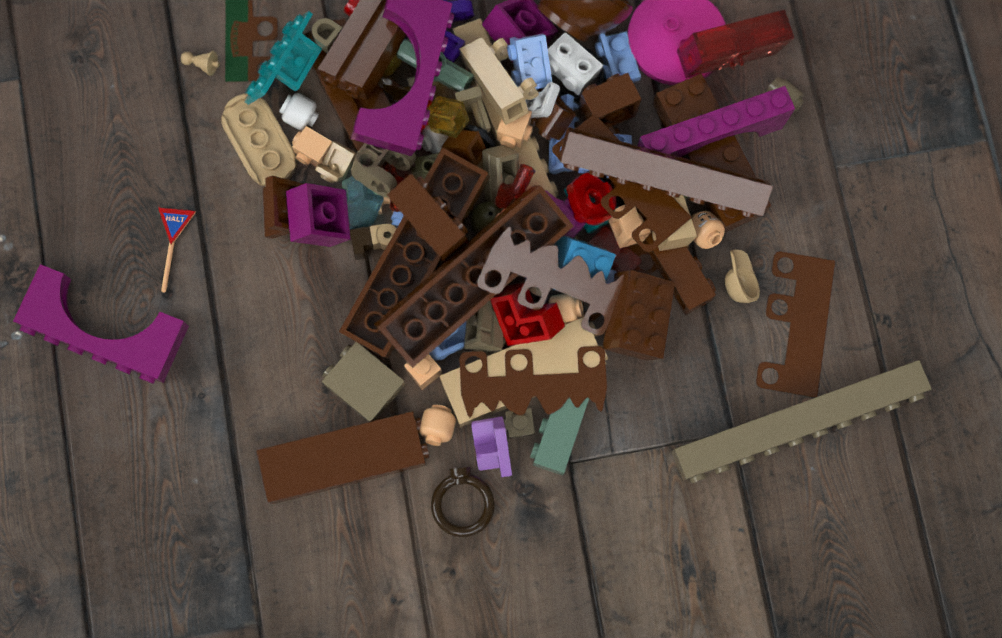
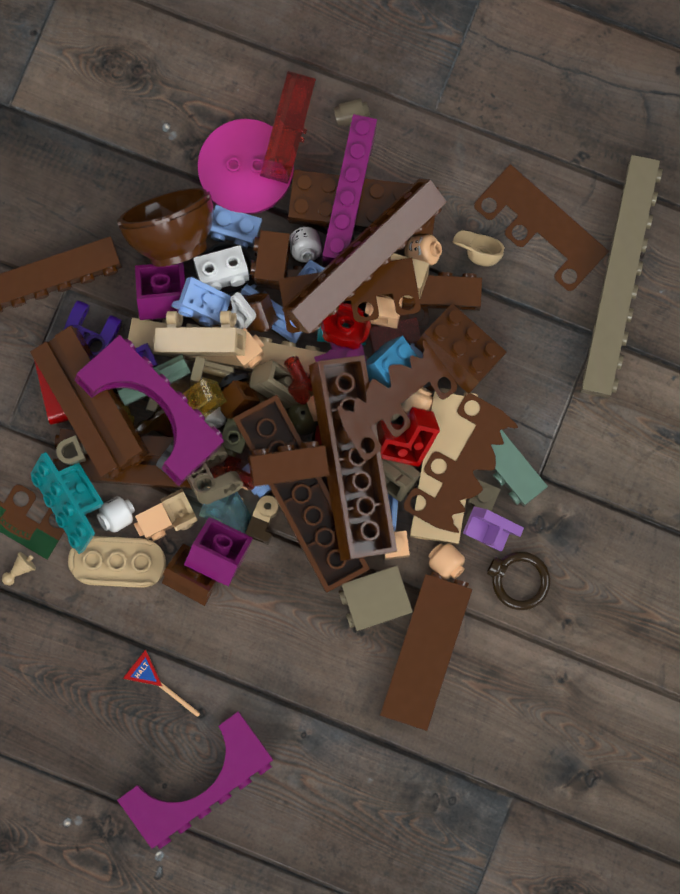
camera: 50 degrees left, 5 degrees up
(641, 123) = (305, 244): none -> white head

